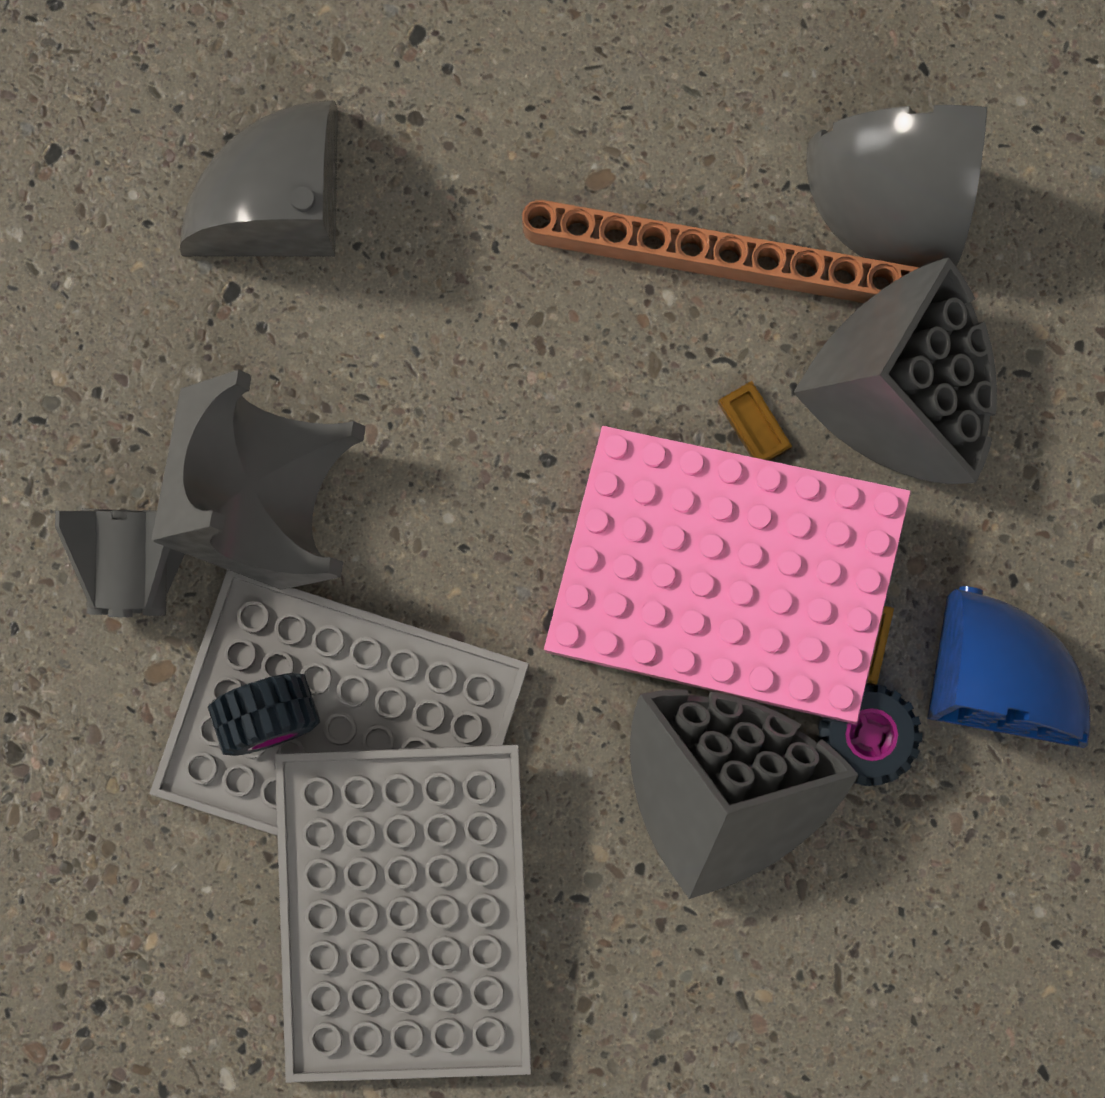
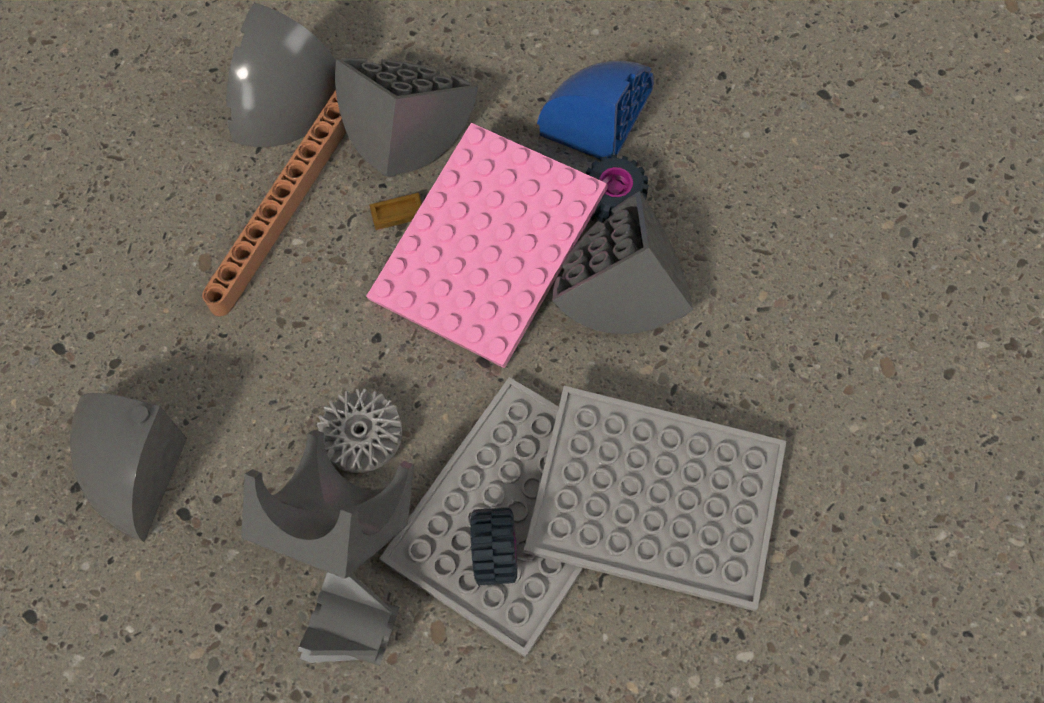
camera: 70 degrees left, 15 degrees down
(397, 514) = (360, 413): none -> light grey wheel

